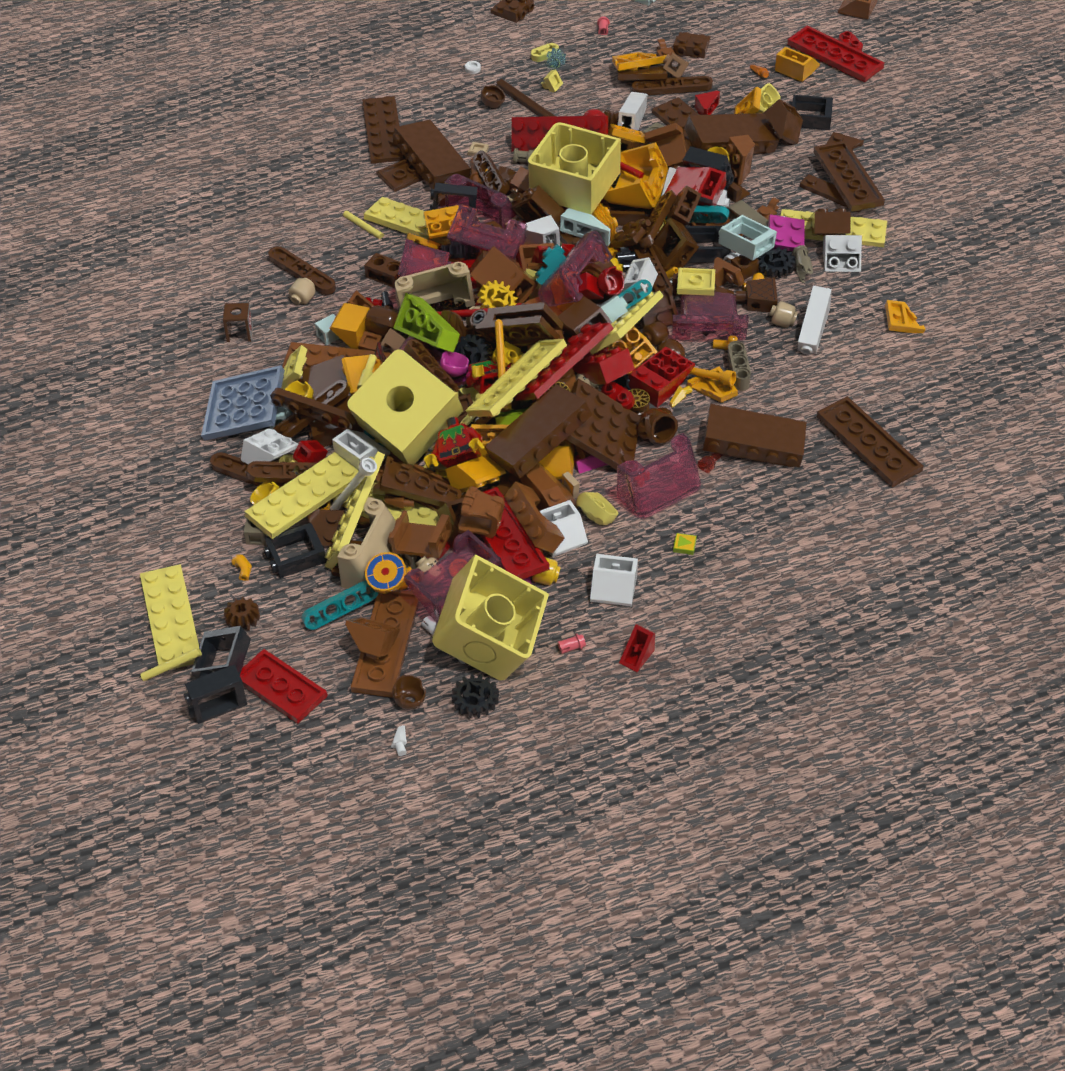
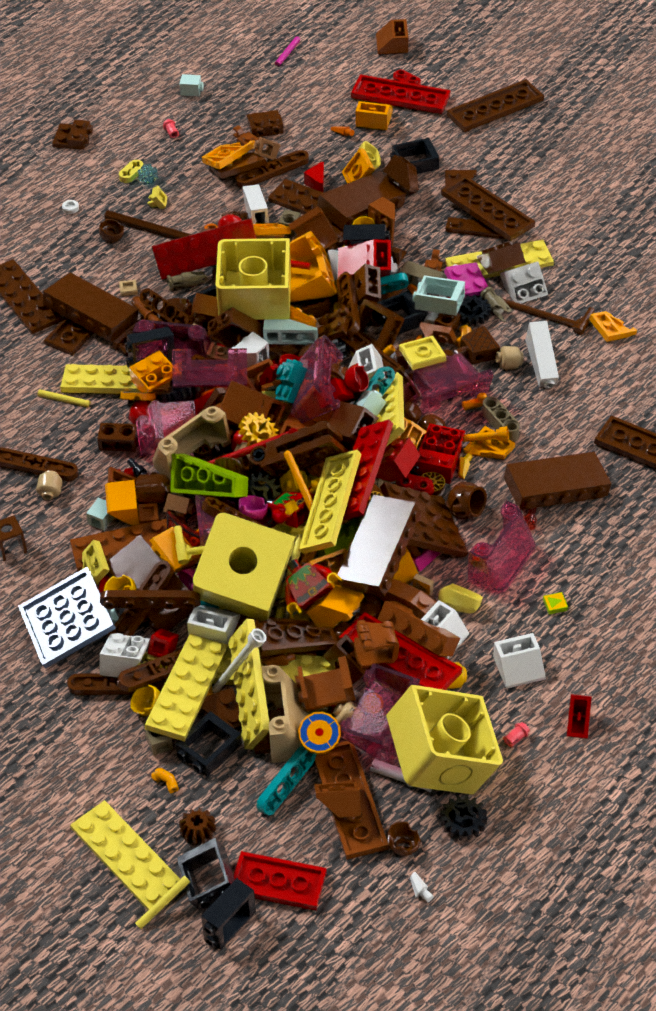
camera: 25 degrees left, 0 degrees up
(870, 308) = (578, 326): none -> reddish brown bar
(920, 88) = (495, 105): none -> reddish brown plate

